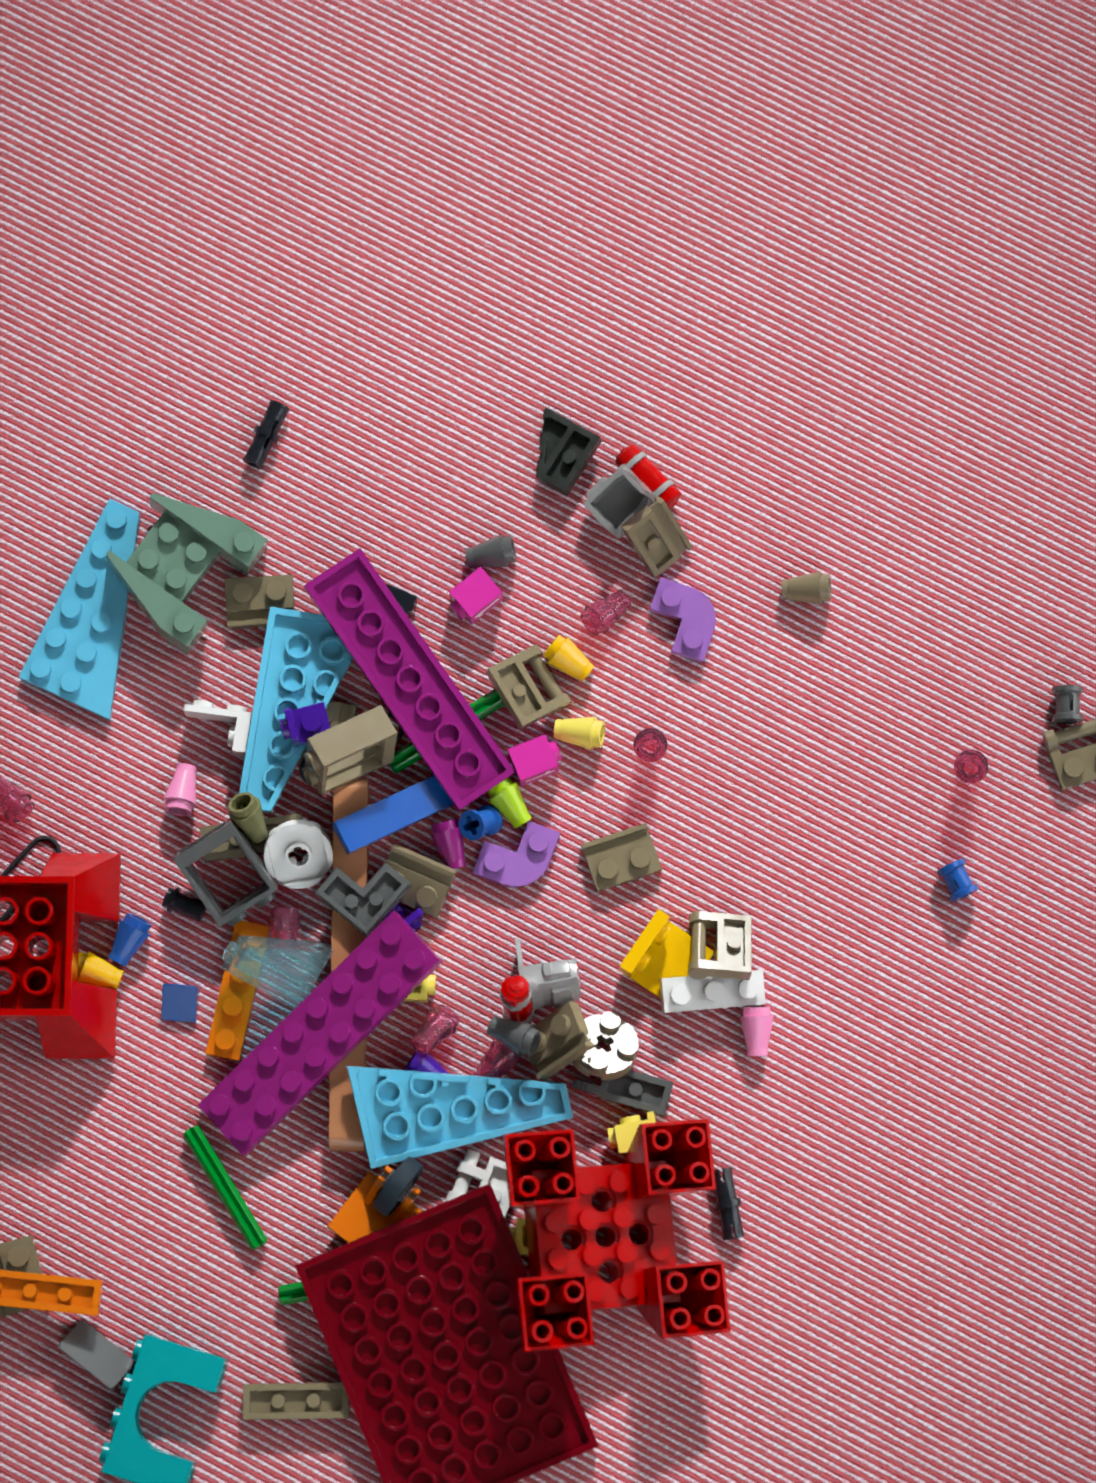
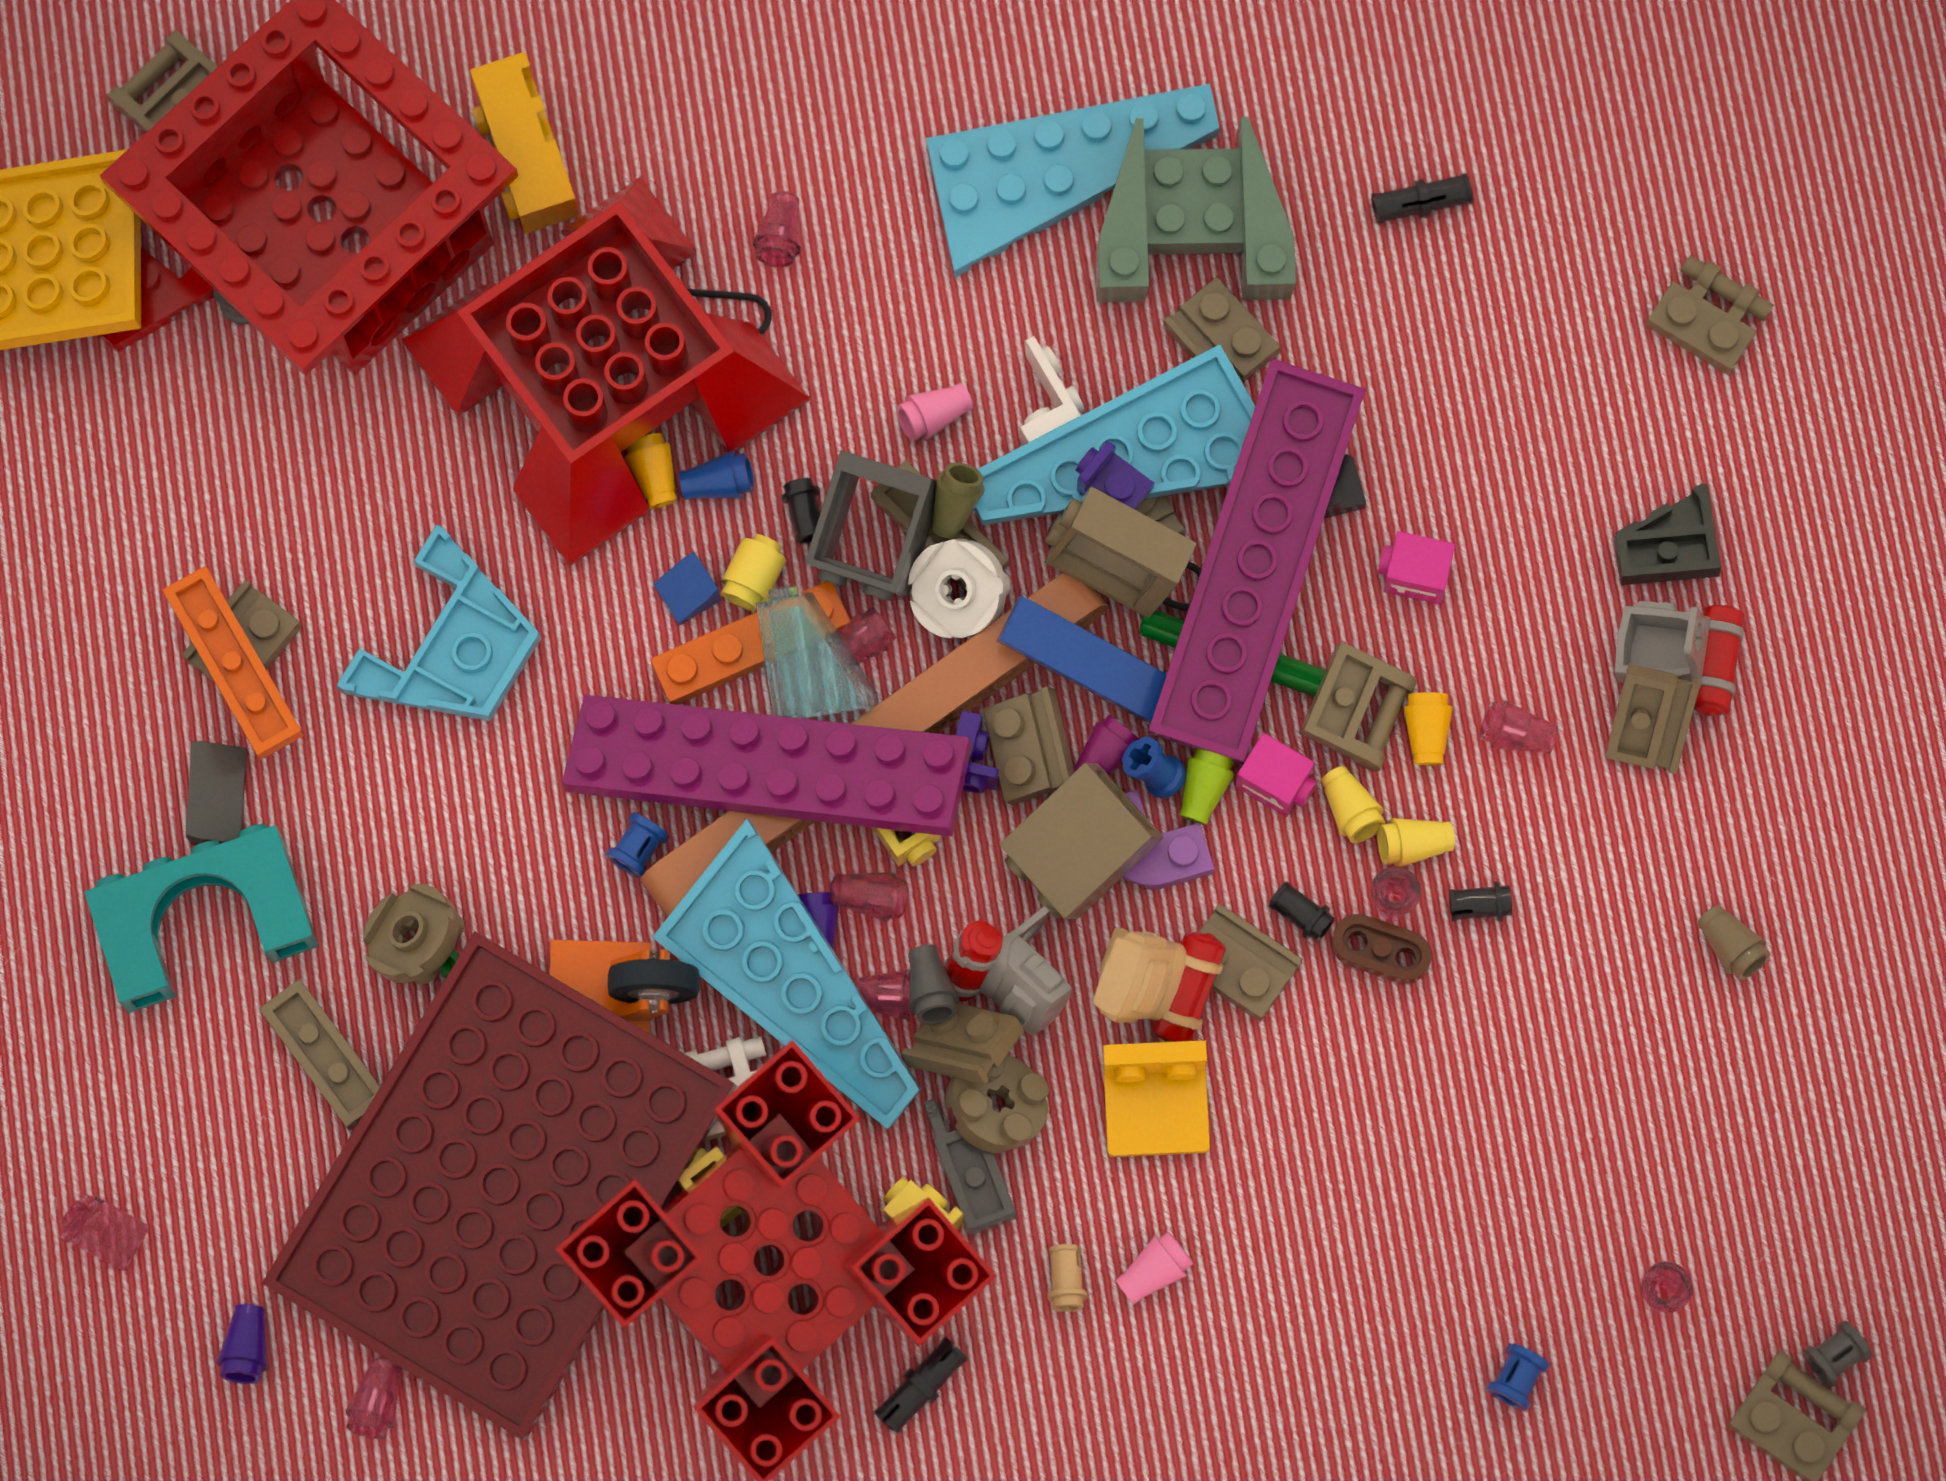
camera: 55 degrees right, 5 degrees down
(124, 1154) = (468, 653): none -> medium azure wing
(199, 959) = (752, 571): none -> light yellow brick
(225, 1187) = (512, 795): green axle -> none
(282, 1296) = (431, 946): none -> dark tan plate
(308, 1138) = (637, 845): none -> blue bush
(365, 906) = (953, 706): dark grey tile -> none
(454, 342) = (1702, 327): none -> dark tan plate
(492, 553) = (1485, 550): dark grey cone -> none
(493, 894) = (1080, 842): none -> dark tan brick
(603, 909) = (1159, 980): none -> tan piece
(619, 803) = (1302, 912): none -> black pin
(624, 715) = (1413, 840): none -> light yellow cone
(669, 774) = (1383, 945): none -> reddish brown plate
(686, 704) = (1481, 902): none -> black pin
(692, 994) = (1160, 1182): white plate -> none
(693, 611) = (1596, 837): medium lavender plate -> none
(727, 1081) = (1066, 1278): none -> tan pin
(732, 945) = (1230, 1163): plate -> none

